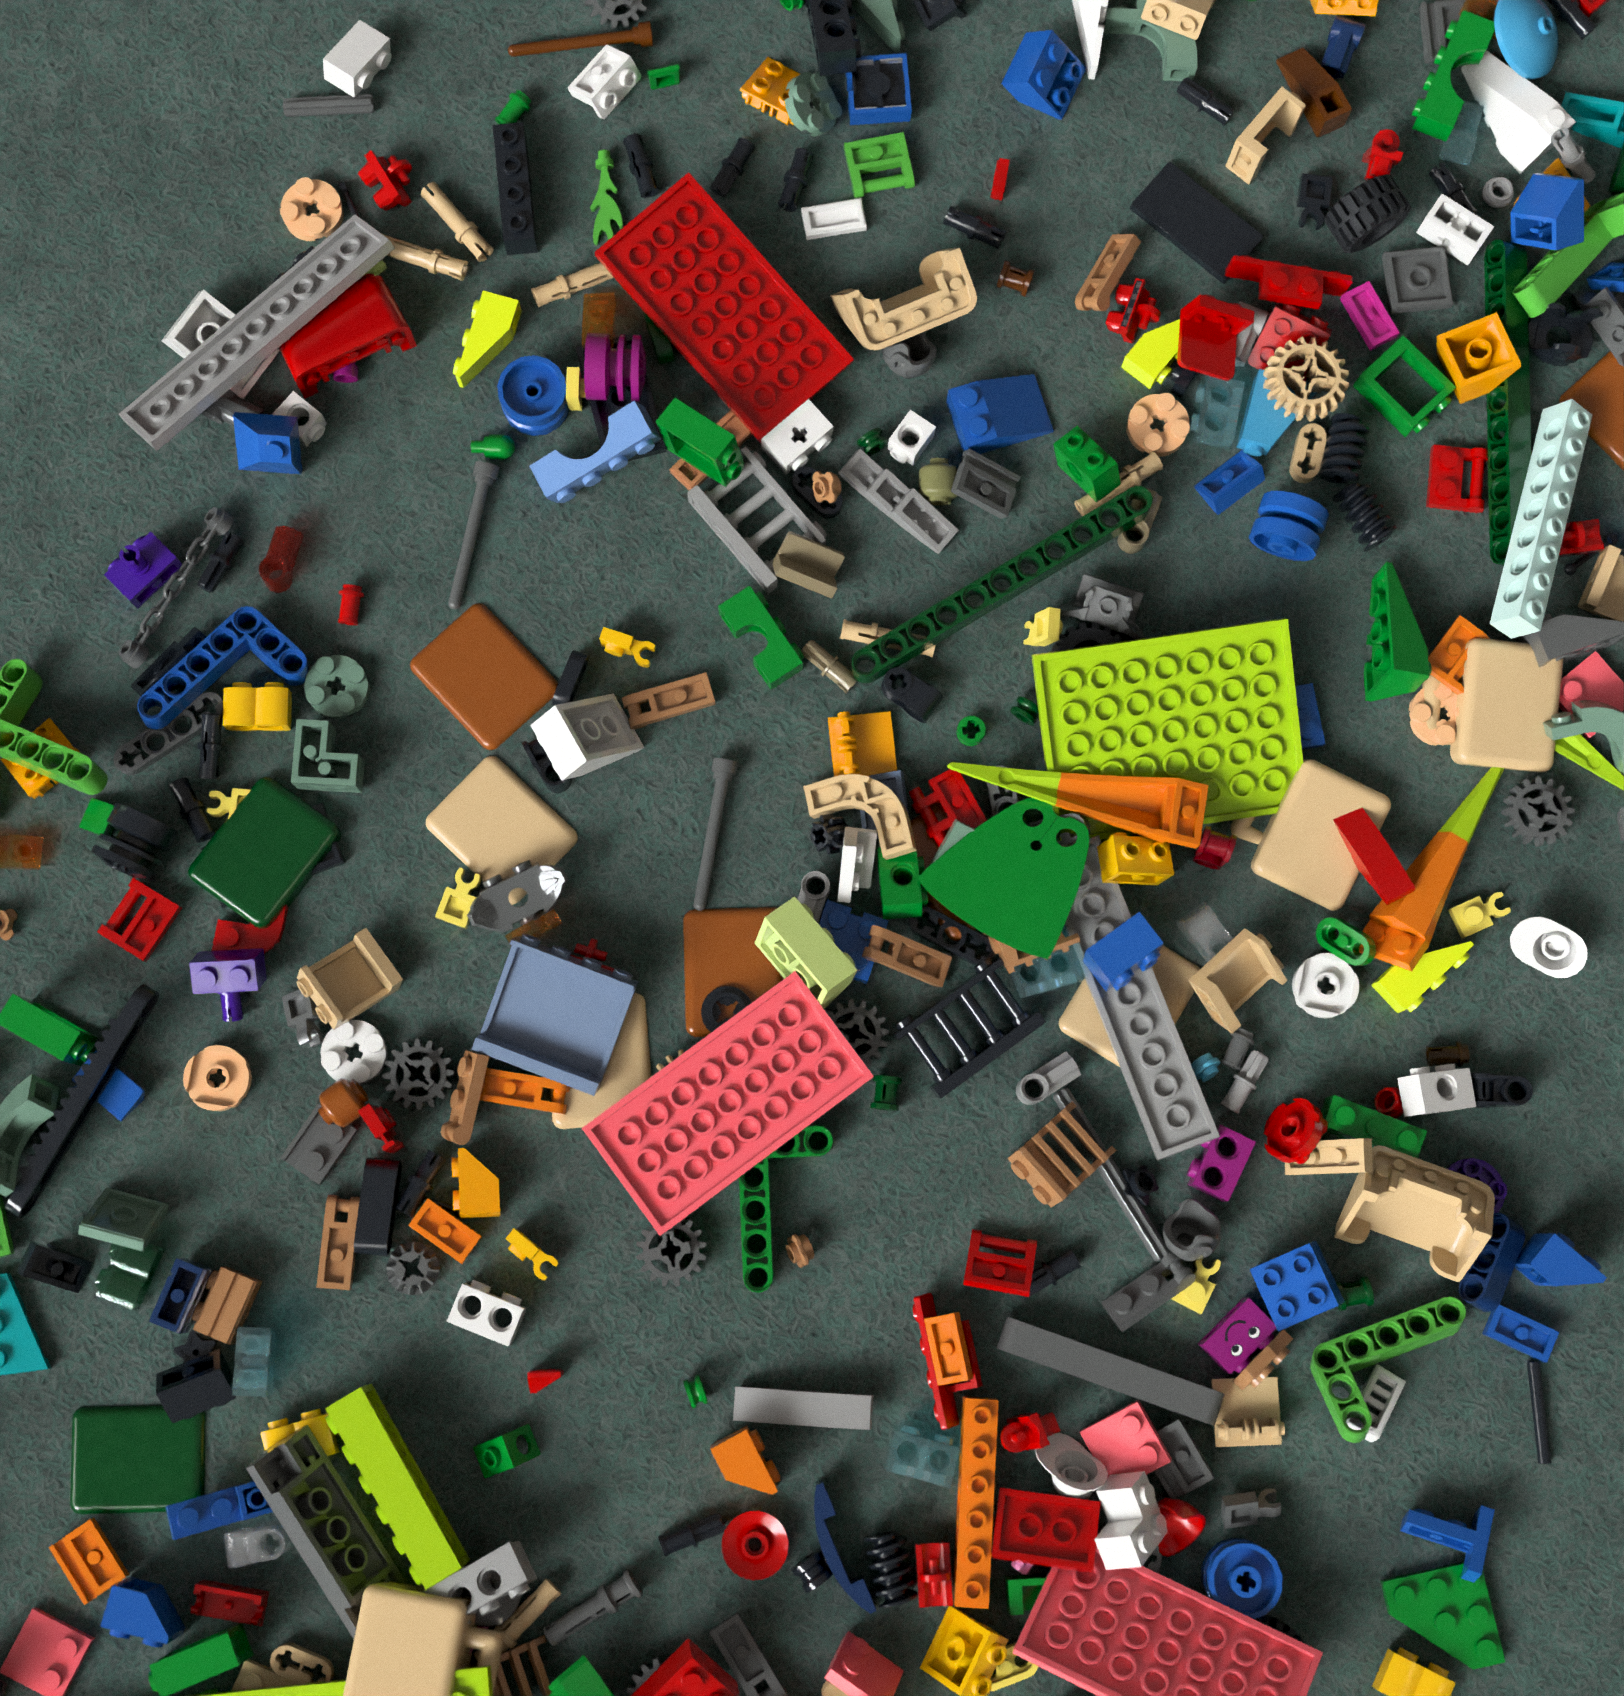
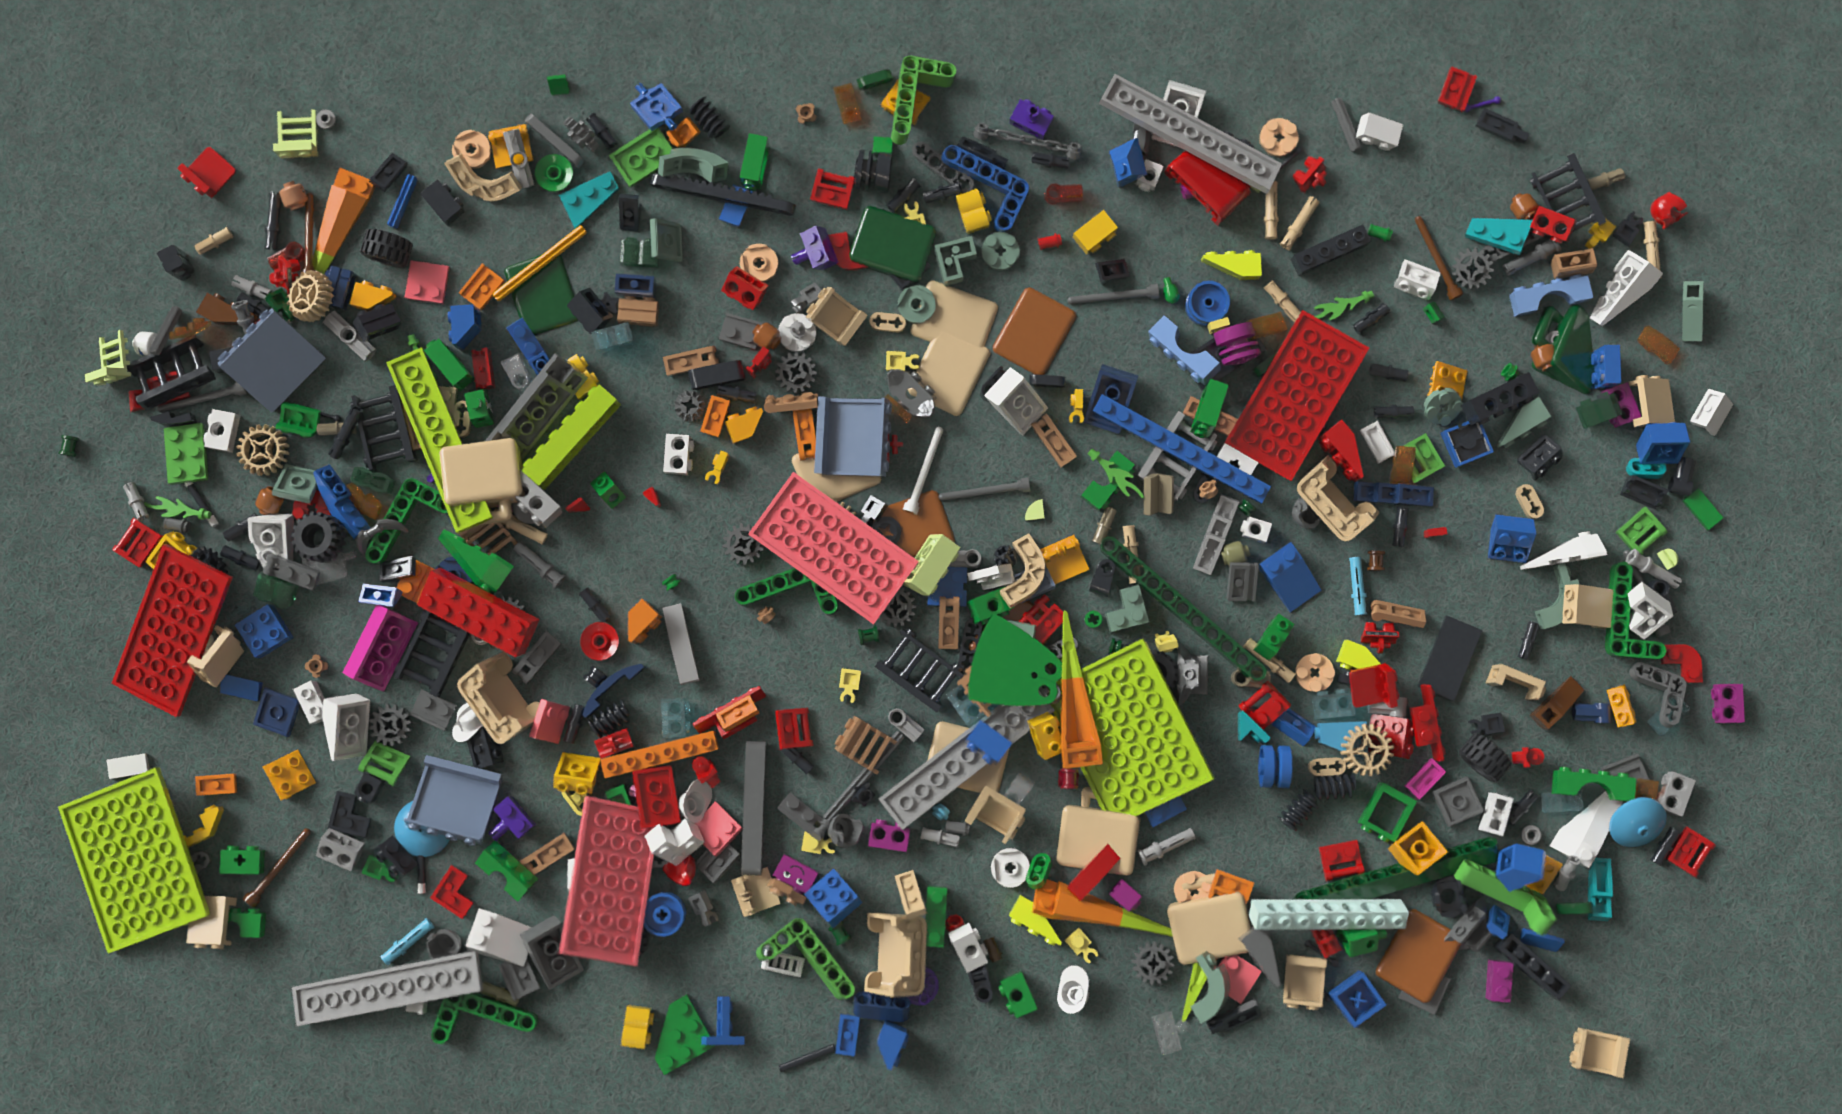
camera: 75 degrees right, 5 degrees up
(85, 1448) = (539, 263): none -> light orange axle
(244, 1108) = (746, 284): none -> red brick
(293, 1628) = (479, 407): none -> green torso
(349, 1046) = (797, 329): none -> light grey axle
(360, 528) = (1095, 232): none -> yellow brick
(377, 827) = (913, 294): none -> sand green plate
(395, 904) = (886, 326): none -> tan beam
(410, 792) = (957, 315): none -> tan piece
(430, 525) = (1112, 270): none -> black slope
(516, 1510) = (578, 506): none -> red slope
(632, 590) = (1115, 385): none -> dark blue slope
(686, 1020) = (873, 510): none -> plate
(696, 954) = (912, 504): none -> white piece
(748, 506) = (1181, 449): none -> blue plate
(757, 614) = (1118, 474): none -> bright green piece
(771, 765) = (1035, 511): none -> yellowish green tile
(830, 266) = (1342, 446): none -> red slope
(879, 1632) = (574, 724): none -> black pin
(883, 189) = (1402, 465): none -> clear orange slope
(921, 221) = (1393, 494): none -> dark blue slope
(951, 1147) = (849, 680): none -> light yellow plate
(981, 665) = (1133, 611): none -> sand green brick
(996, 32) = (1525, 504): none -> tan beam
(1045, 317) = (1360, 609): none -> medium azure pin
(1196, 507) = (1269, 709): none -> red plate
(1210, 549) = (1246, 724): none -> teal slope
(1309, 1129) = (924, 879): red plate -> none
(1363, 747) = (1157, 850): none -> light grey pin
(1398, 648) = (1219, 854): green wedge -> none
(1423, 818) = (1125, 895): none -> magenta brick
(1548, 1029) = (1023, 1005): none -> green brick
(1595, 486) = (1360, 940): none -> green torso

